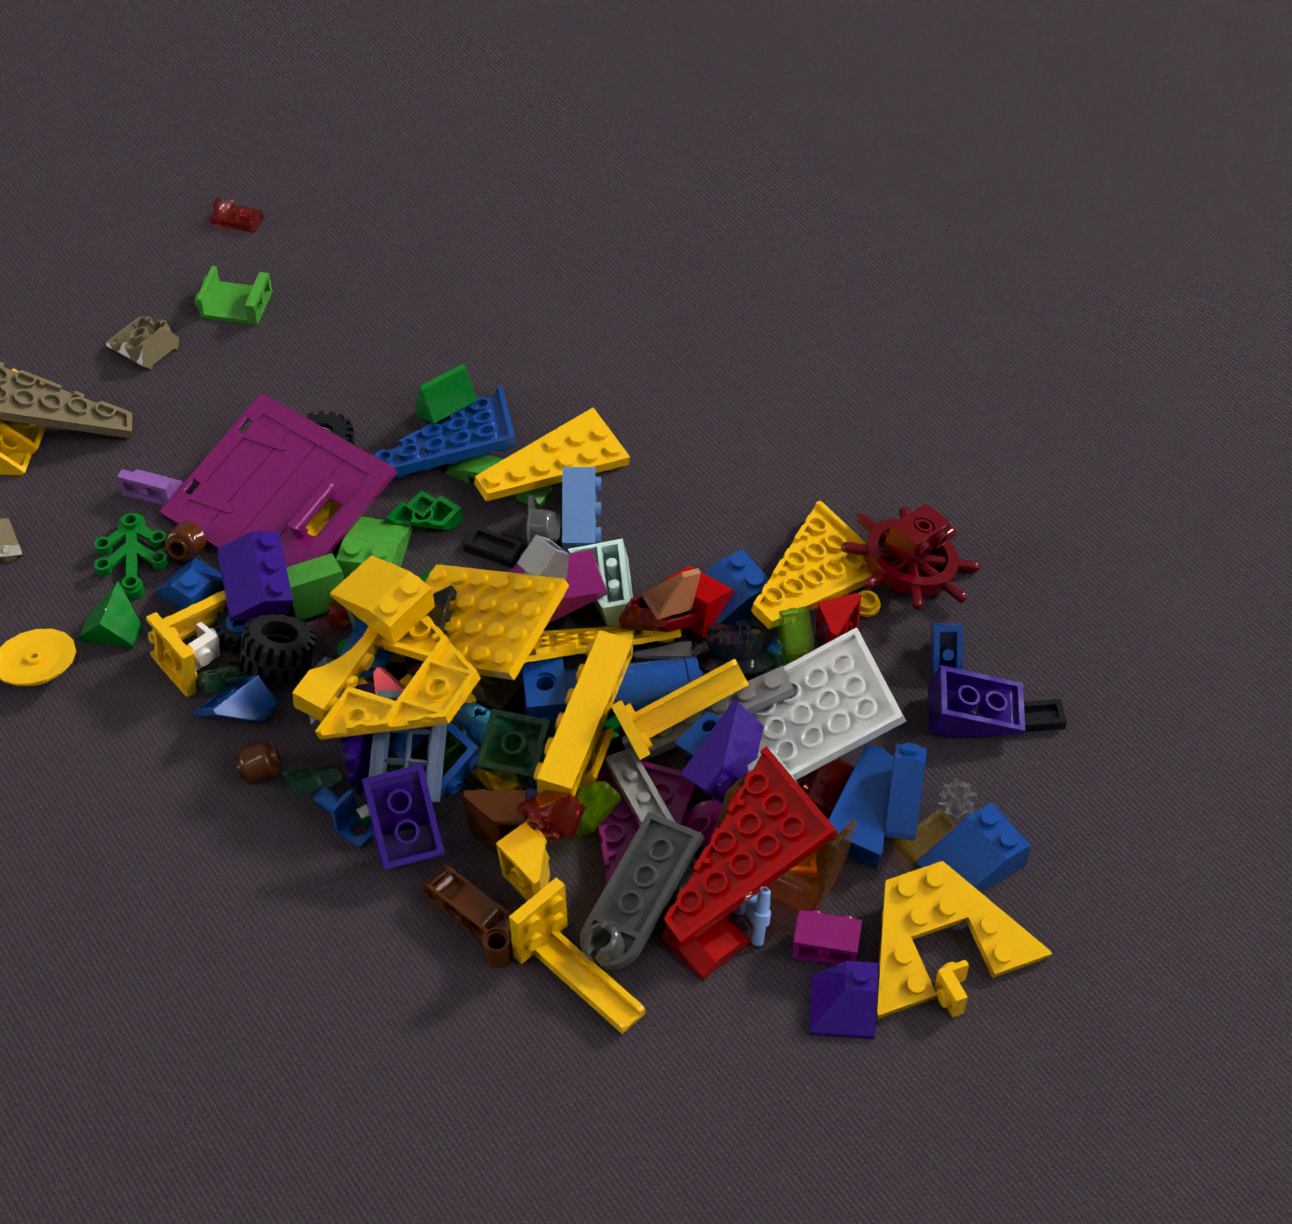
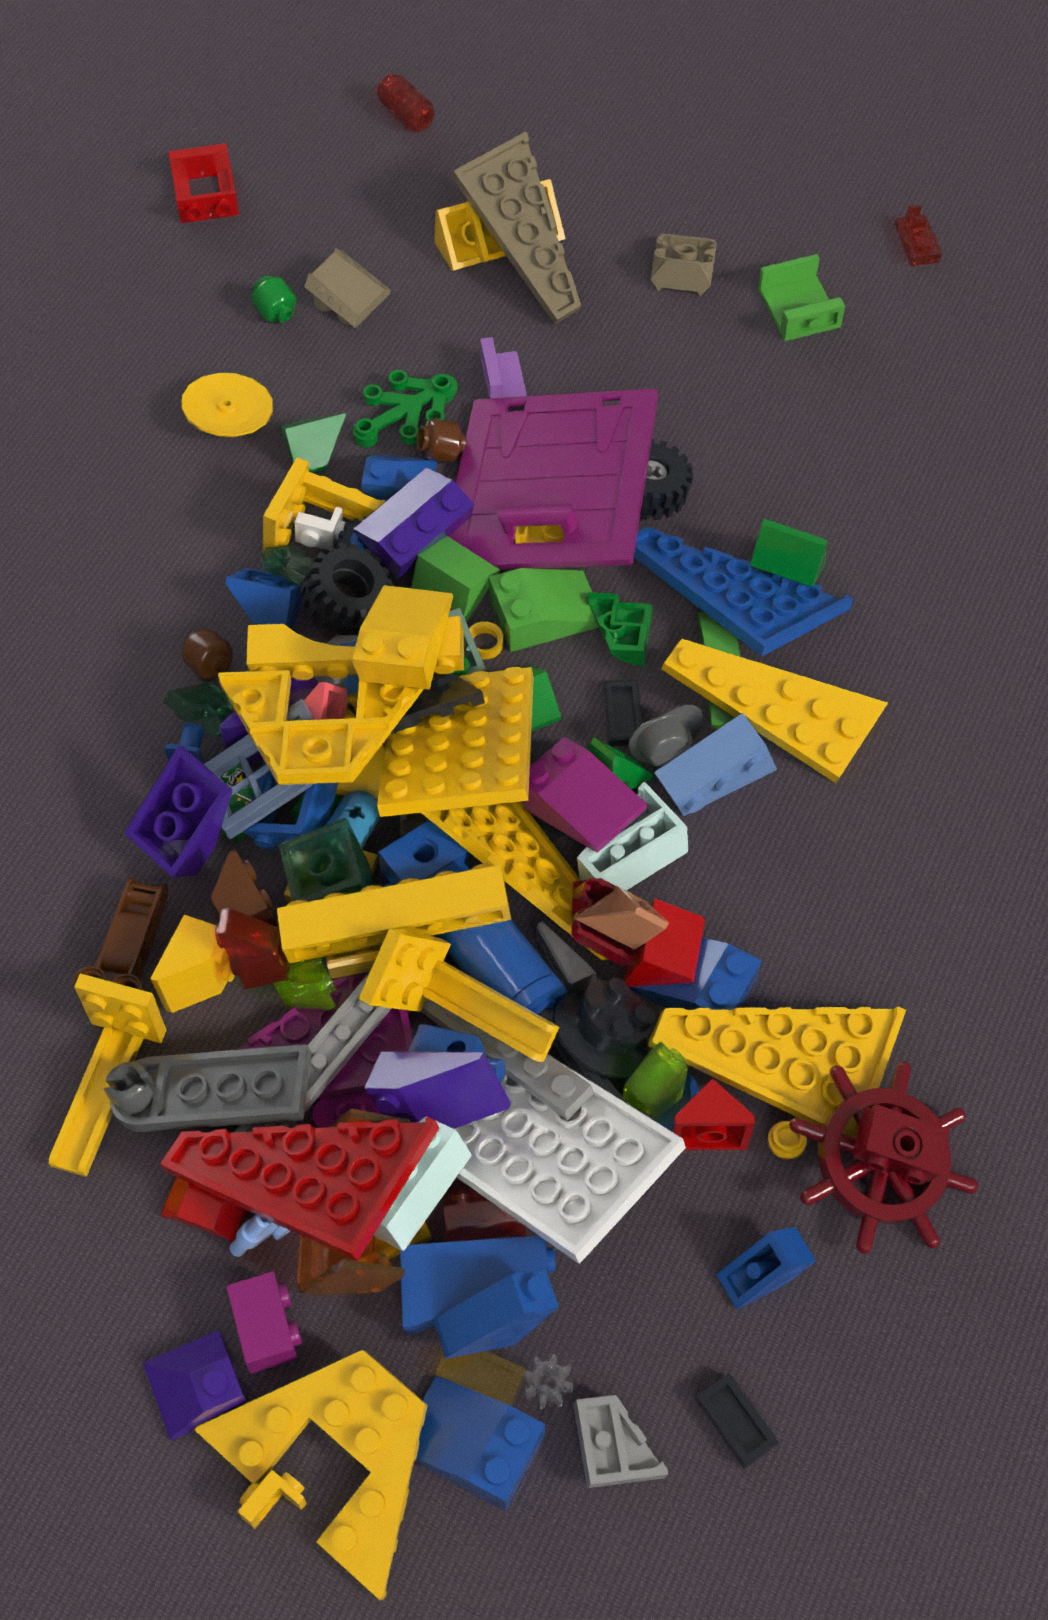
camera: 60 degrees right, 10 degrees up
(544, 559) = (560, 760): light grey slope -> none
(974, 704) = (699, 1341): dark purple slope -> none
(1015, 784) = (613, 1445): none -> light grey wing

